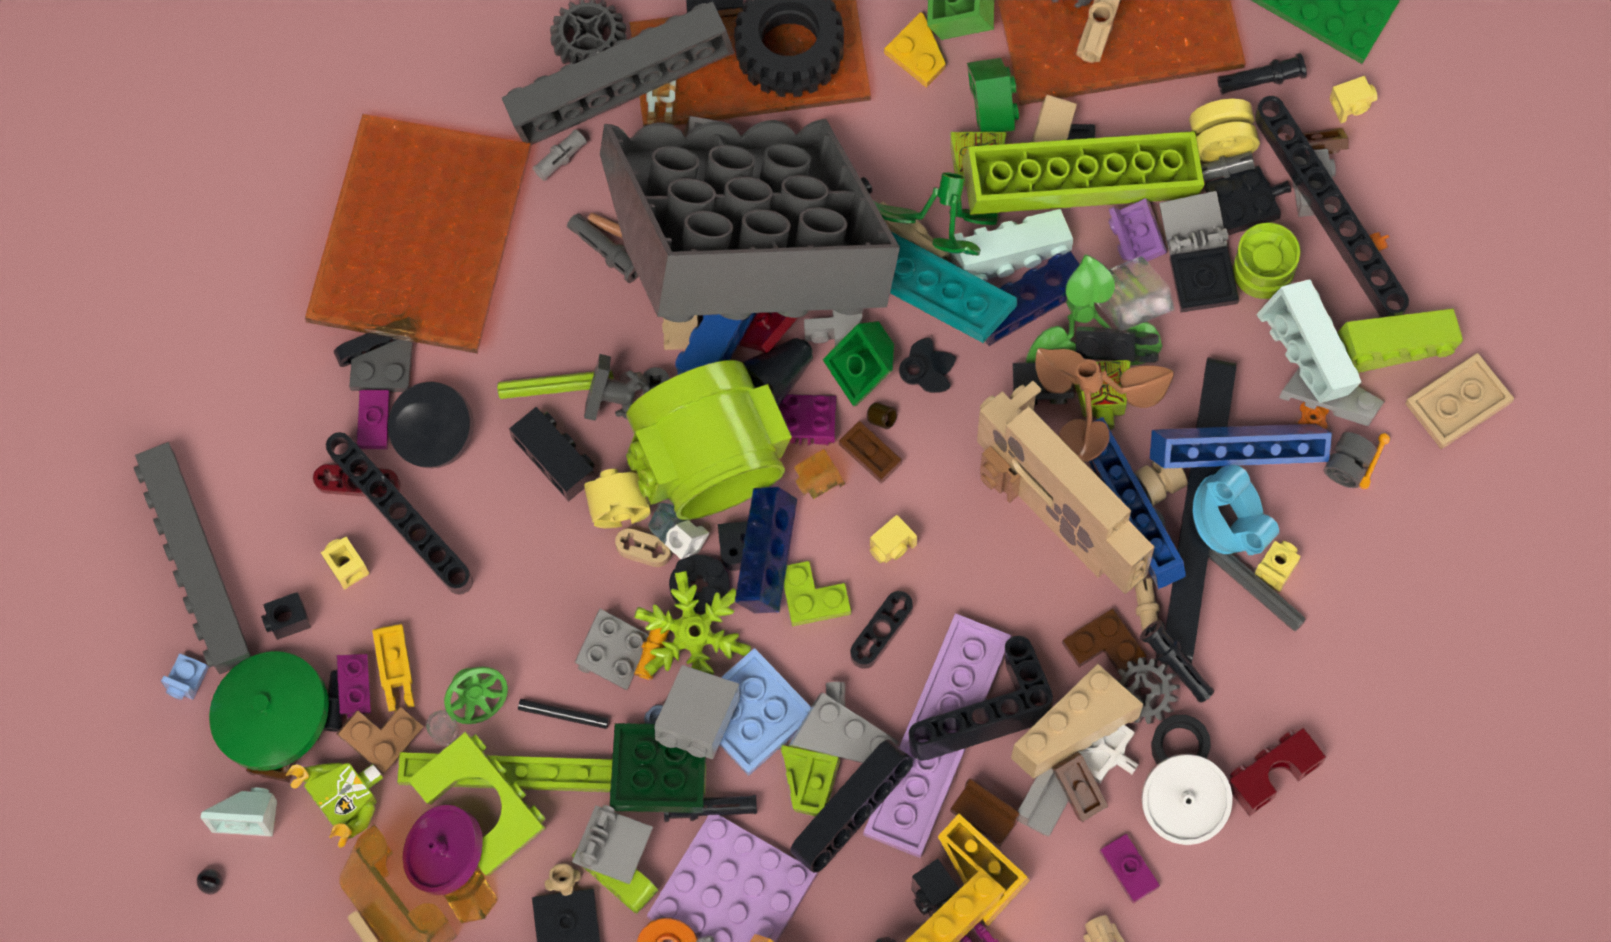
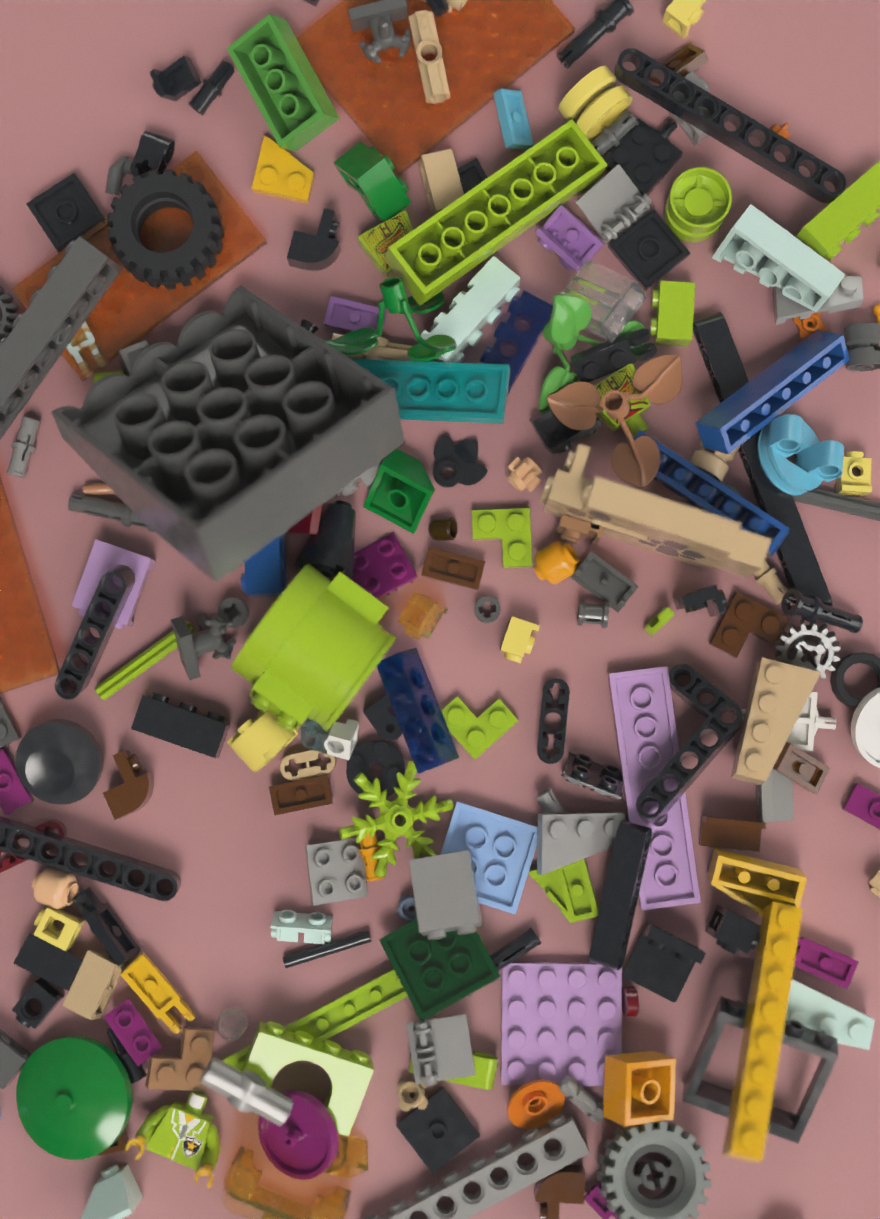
camera: 30 degrees left, 15 degrees up
(317, 588) = (48, 962): none -> black hinge
(344, 627) = (93, 985): none -> tan hinge
(362, 527) = (55, 887): none -> light nougat head
(385, 584) = (106, 926): none -> black hinge
(424, 774) = (246, 1091): none -> light grey piece
(473, 691) = (236, 979): bright green wheel -> none
(477, 486) = (134, 791): none -> reddish brown brick
(541, 330) = (86, 642): none -> black beam
(563, 685) = (288, 924): none -> light aqua hinge
(566, 304) = (101, 560): none -> lavender panel
(621, 568) = (301, 794): none -> reddish brown plate
(805, 907) = (630, 1001): none -> dark red tile
(856, 889) = (662, 962): none -> black bracket
(882, 680) = (603, 778): none -> black hinge
(883, 511) = (494, 615): none -> dark grey bush
(904, 193) = (351, 315): none -> medium lavender plate
(911, 128) = (318, 251): none -> black brick
(942, 448) = (512, 527): none -> lime plate
(964, 494) = (556, 562): none -> light orange head
(971, 556) = (593, 613): none -> dark grey bush
(974, 401) = (523, 474): none -> light nougat gear
(998, 535) = (604, 581): none -> dark grey hinge
(1033, 594) = (658, 621): none -> lime tile
(1073, 588) = (706, 597): none -> black bracket
(1146, 107) = (513, 119): none -> medium azure plate
(1194, 342) = (673, 313): none -> lime brick

